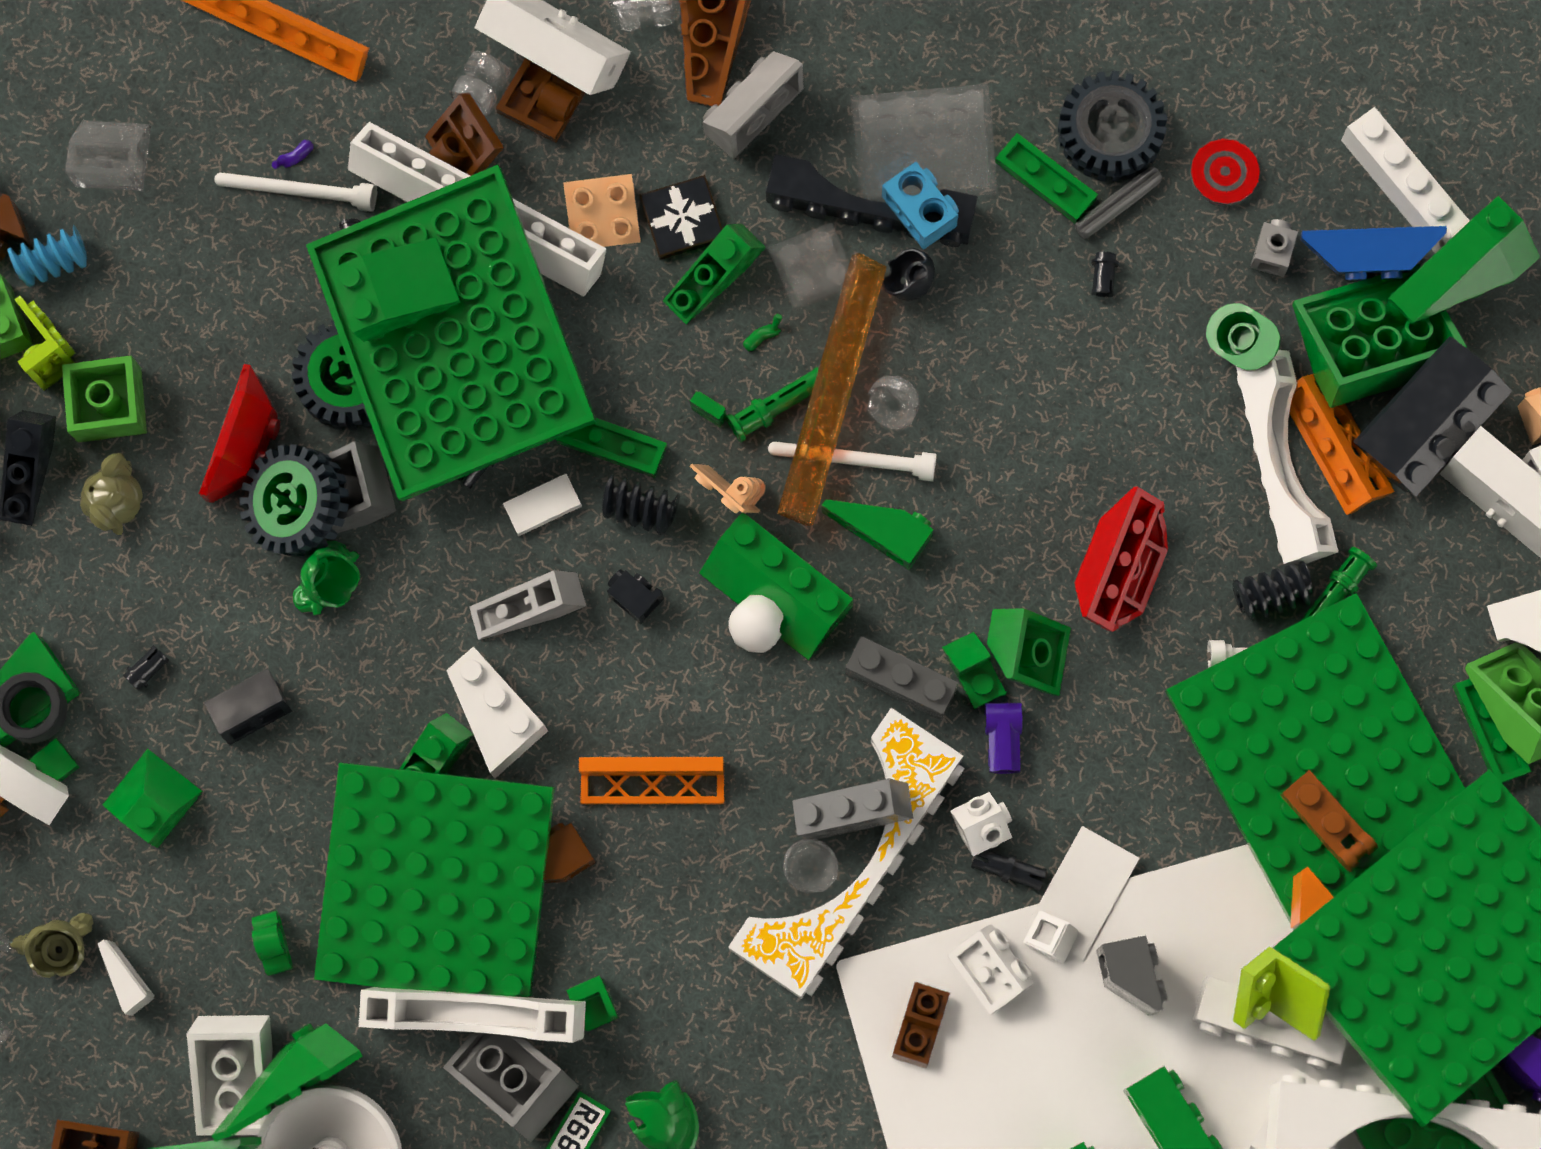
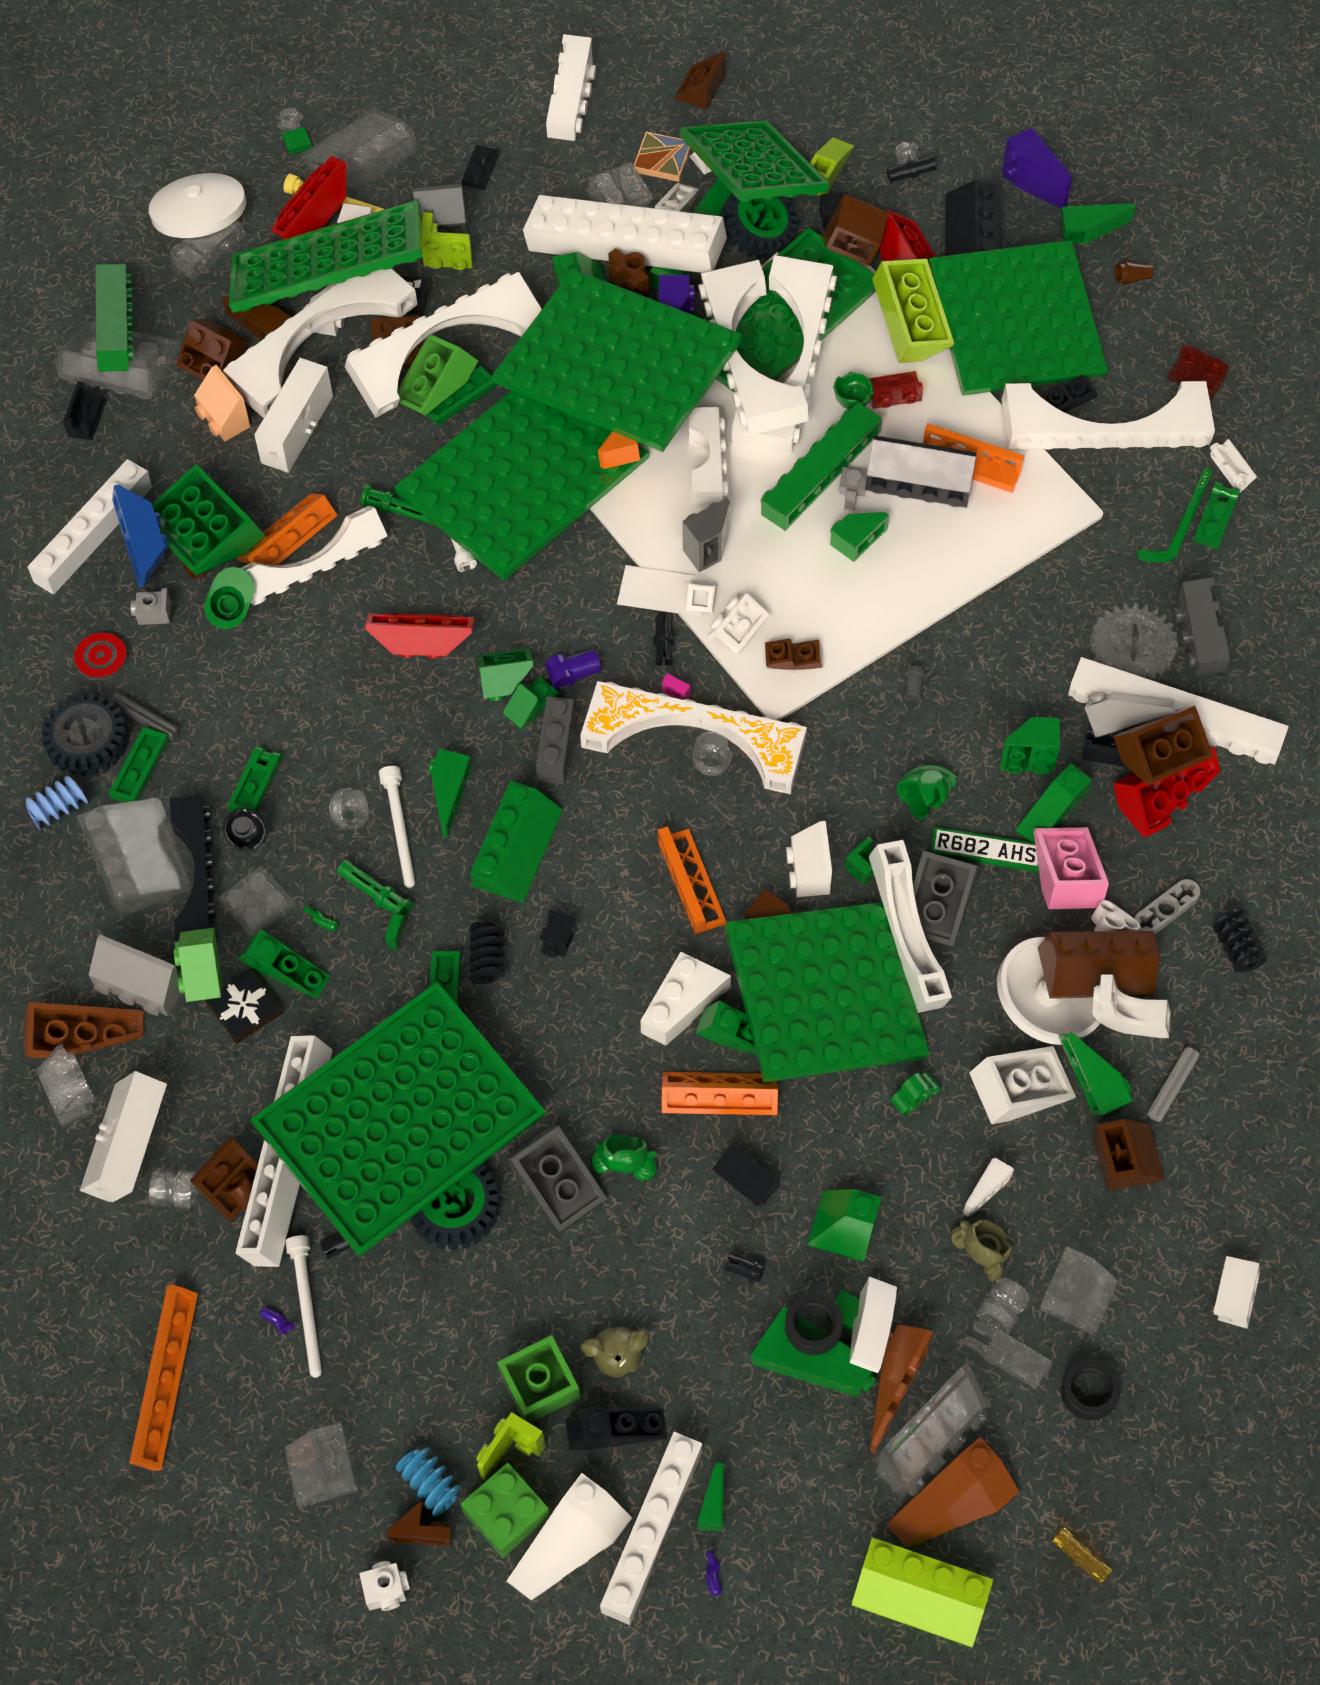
camera: 115 degrees left, 15 degrees down
(243, 438) = (532, 1262): red wedge -> none
(303, 1062) = (1001, 1025): green wedge -> none
(311, 483) = (599, 1205): wheel -> none
(359, 703) = (718, 1093): none -> orange fence
(394, 287) = (378, 1162): green slope -> none
(528, 604) = (592, 1005): light grey slope -> none
(539, 101) = (175, 1140): reddish brown plate -> none
(542, 504) = (509, 1026): white tile -> none
(603, 209) = (255, 1061): light nougat hinge -> none
(611, 929) = (810, 861): none -> white slope
(732, 169) = (200, 965): none -> brick
(739, 495) = (454, 881): light nougat hinge -> none
(756, 624) = (549, 846): white hair -> none
(832, 390) = (352, 848): clear orange plate -> none
(852, 809) = (663, 733): brick -> none
(913, 208) = (197, 829): dark azure brick -> none
(924, 855) = (675, 688): none -> dark pink tile
(976, 306) = (255, 780): none -> green plate
(982, 823) = (640, 659): white brick -> none
(1024, 70) = (55, 801): none -> light blue piece
(1104, 274) = (204, 708): black pin -> none
(1273, 590) = (409, 537): black piece -> none
(1284, 989) = (687, 434): lime bracket -> none
(1328, 820) = (559, 456): dark orange plate -> none
(1432, 416) = (254, 470): black slope -> none
(1478, 258) = (124, 464): green wedge -> none

